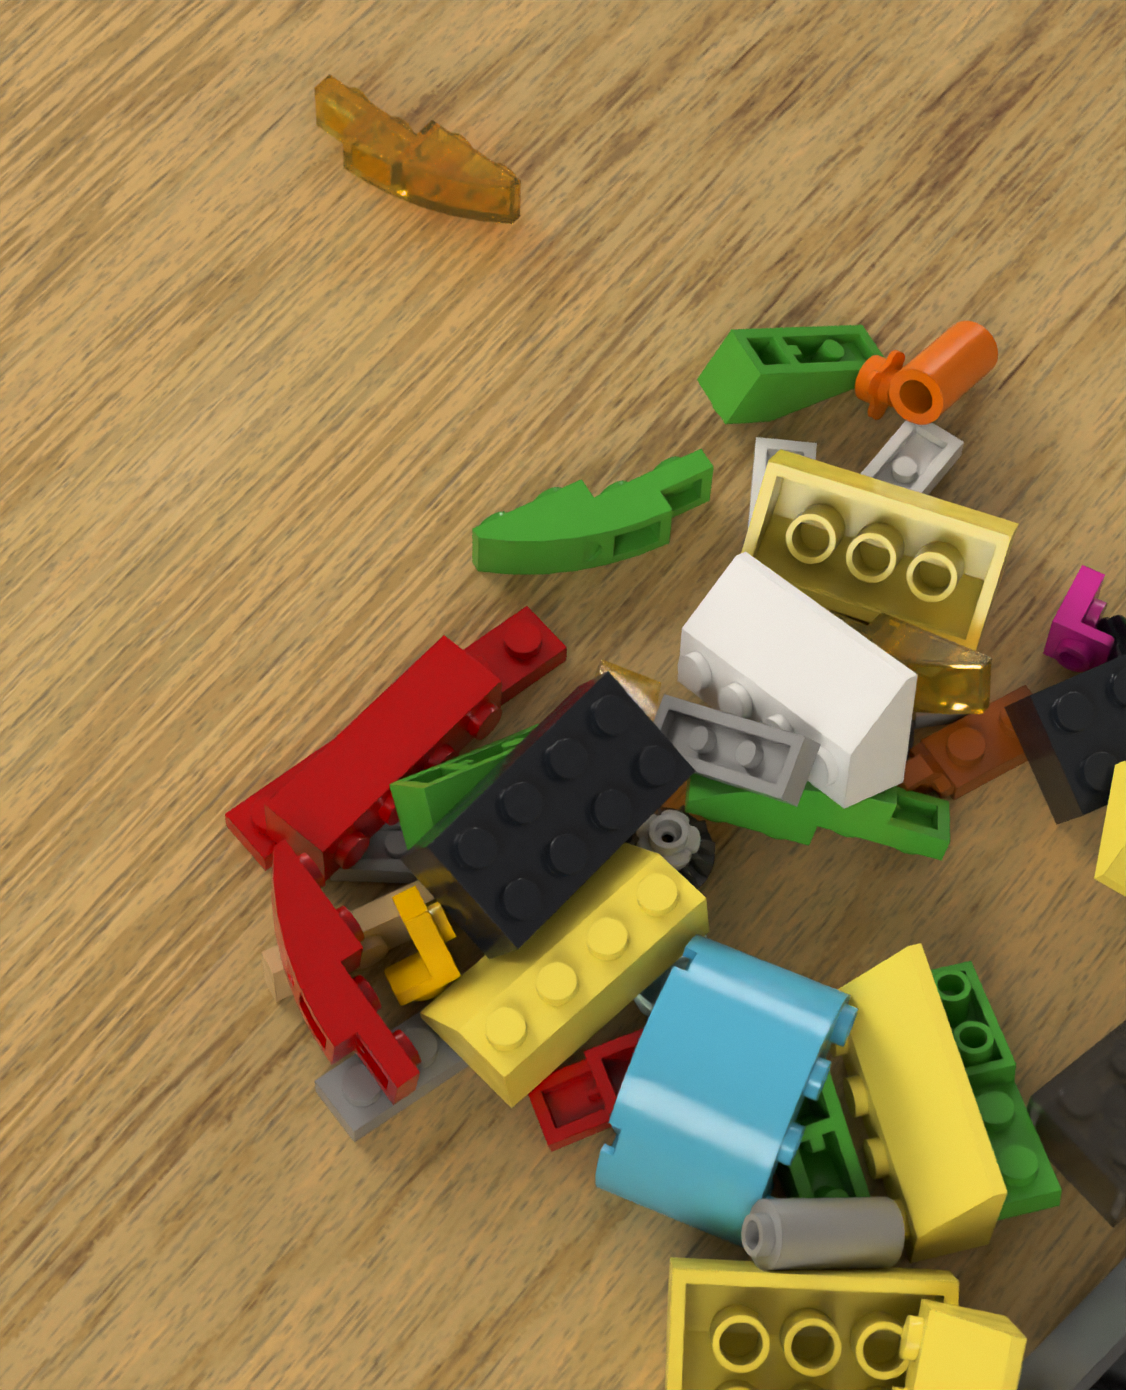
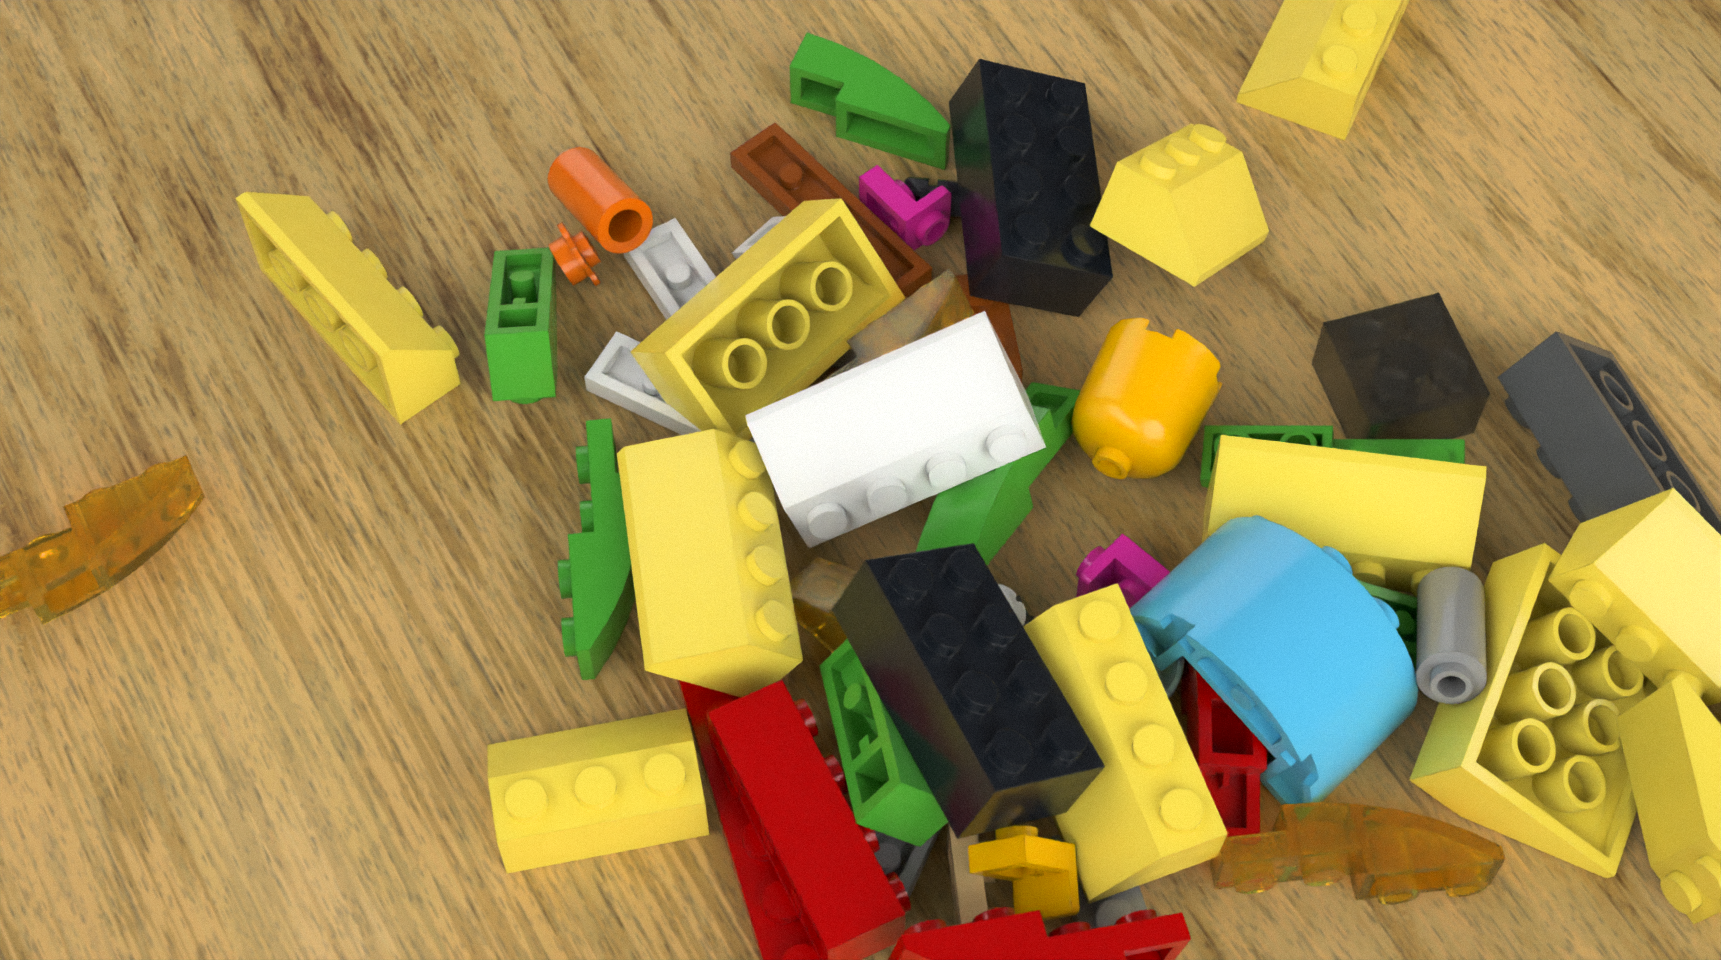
camera: 65 degrees left, 0 degrees up
(360, 596) = (596, 790): none -> light yellow slope
(583, 1249) = (1381, 848): none -> clear yellow slope
(596, 587) = (708, 562): none -> light yellow slope
(736, 229) = (351, 301): none -> light yellow slope
(738, 749) = (954, 502): light grey plate -> none
(768, 928) = (1121, 564): none -> dark pink bracket
(953, 890) = (1144, 400): none -> yellow cylinder
(1044, 566) = (790, 175): none -> dark orange plate

